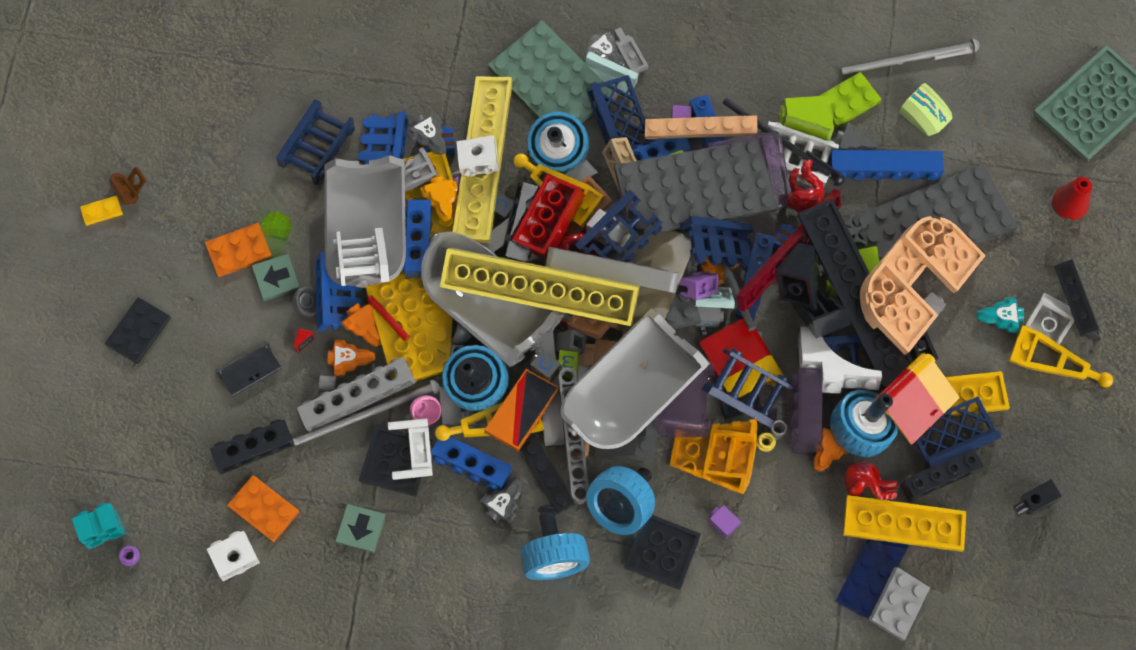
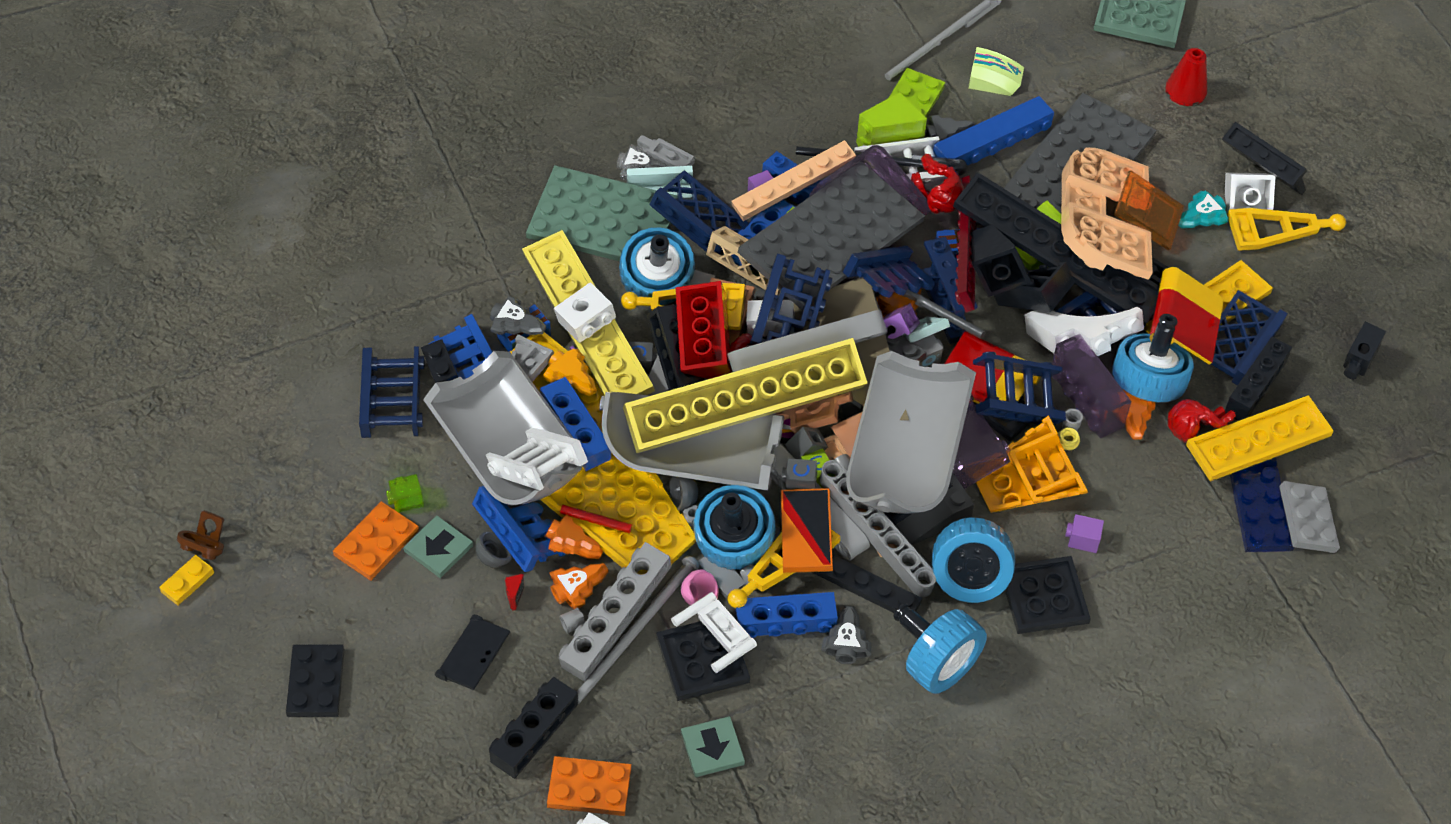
camera: 30 degrees left, 15 degrees down
(362, 137) = (439, 361): none -> black plate
(955, 294) = (1149, 209): none -> clear orange piece

